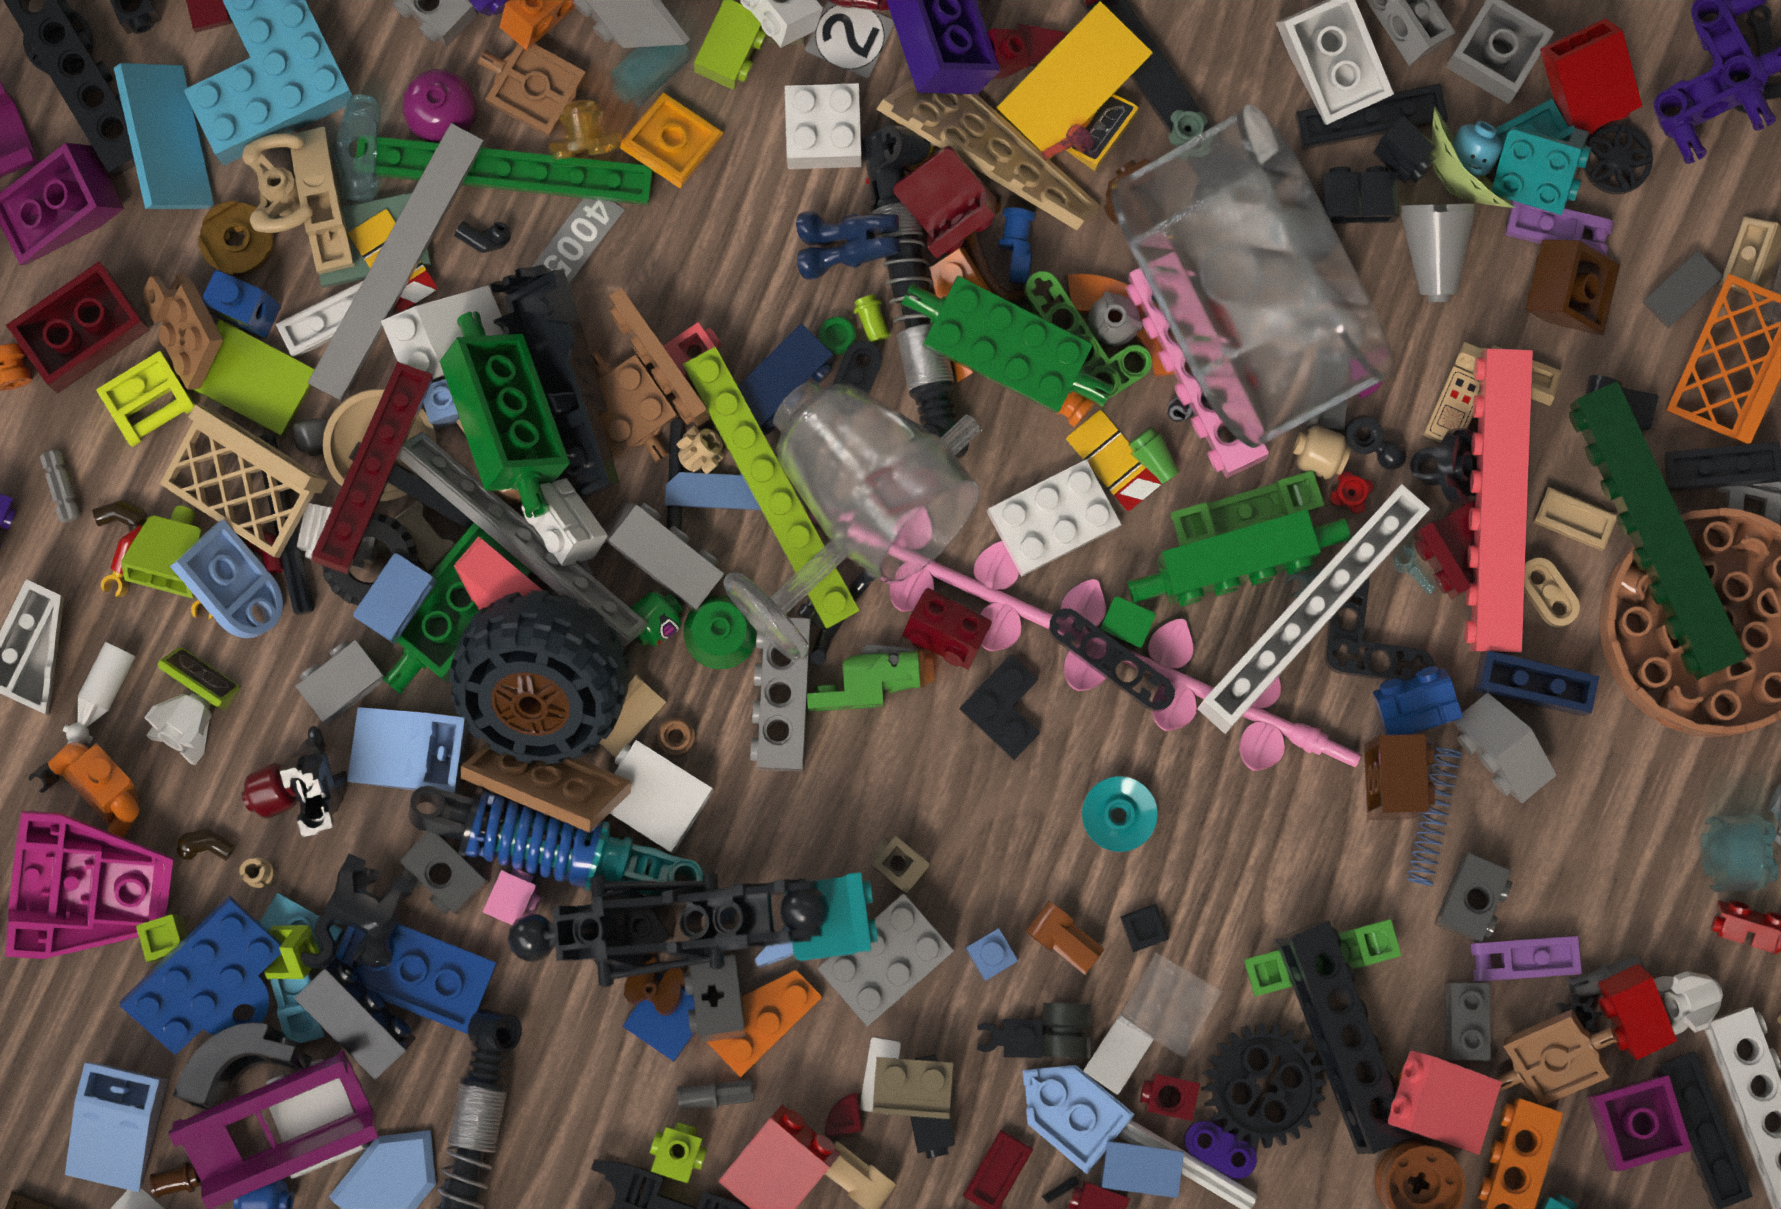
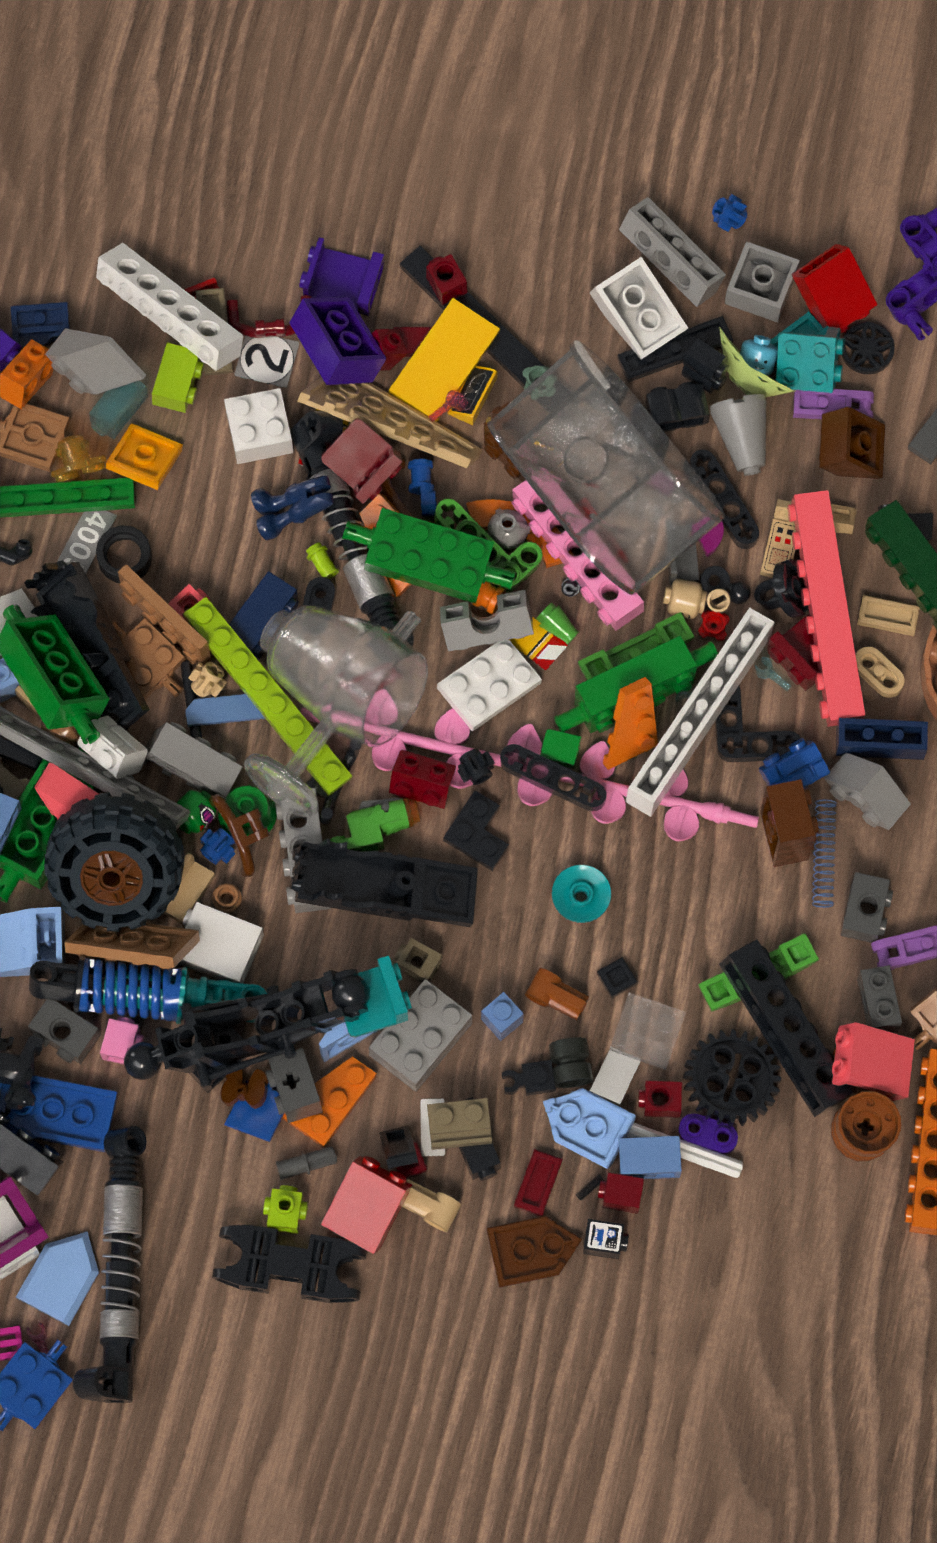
camera: 10 degrees left, 10 degrees down
(618, 237) = (123, 533): none -> black tyre
(675, 669) = (217, 846): none -> blue gear
(699, 653) = (241, 840): none -> reddish brown piece
(832, 1101) = (398, 1147): none -> black tile
(837, 335) = (298, 577): green tile -> none
(874, 760) = (383, 884): none -> black piece
(1016, 629) = (475, 766): none -> black gear
(1037, 444) = (466, 630): none -> light grey arch
(1226, 611) = (634, 726): none -> orange wing
(1367, 470) = (722, 606): none -> tan hinge
(1399, 327) = (727, 497): none -> black beam

